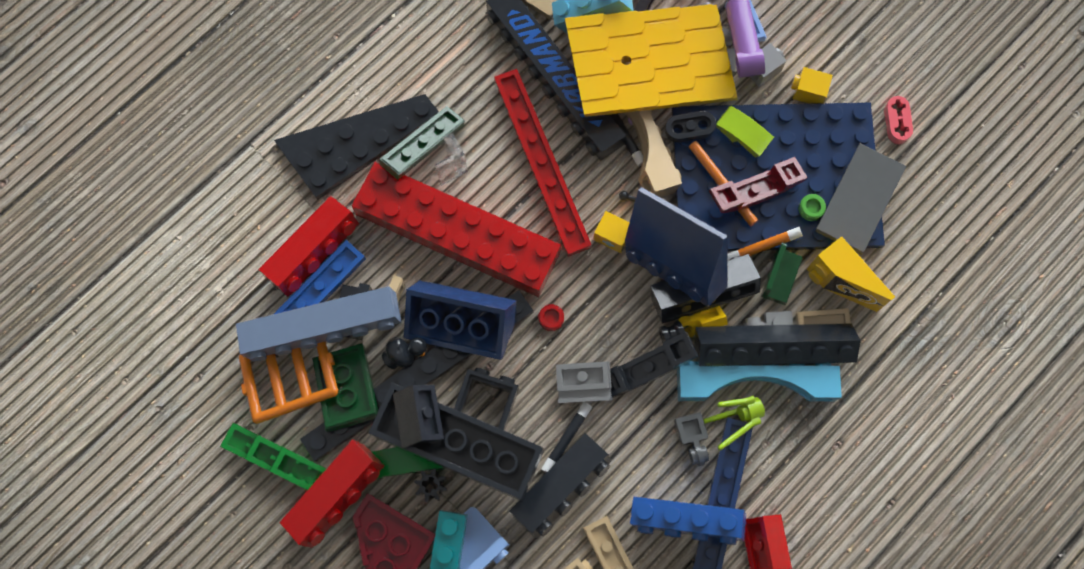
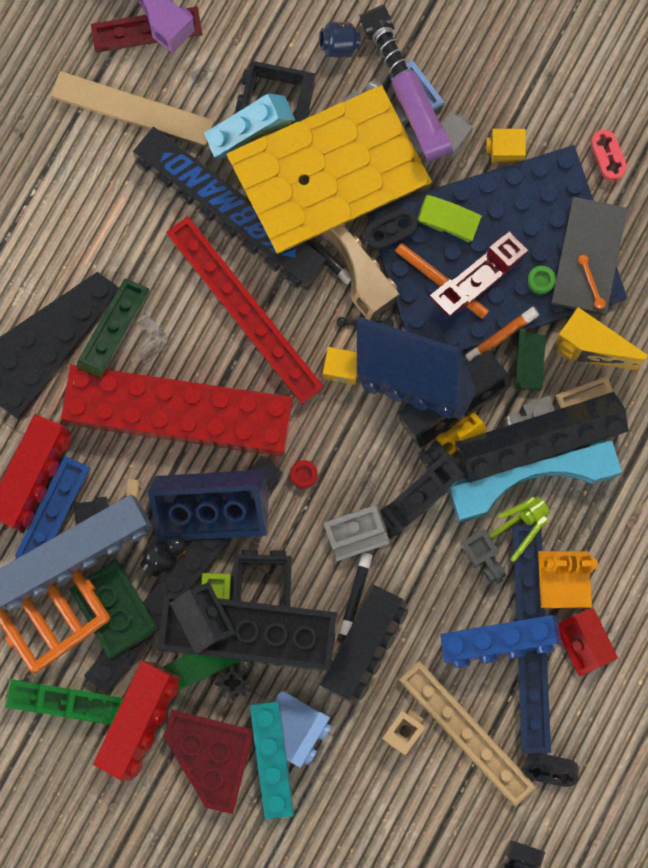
camera: 15 degrees left, 5 degrees up
(445, 392) = (220, 583): none -> lime plate
(763, 480) = (565, 578): none -> light orange hinge
(860, 240) = (599, 303): none -> orange hinge

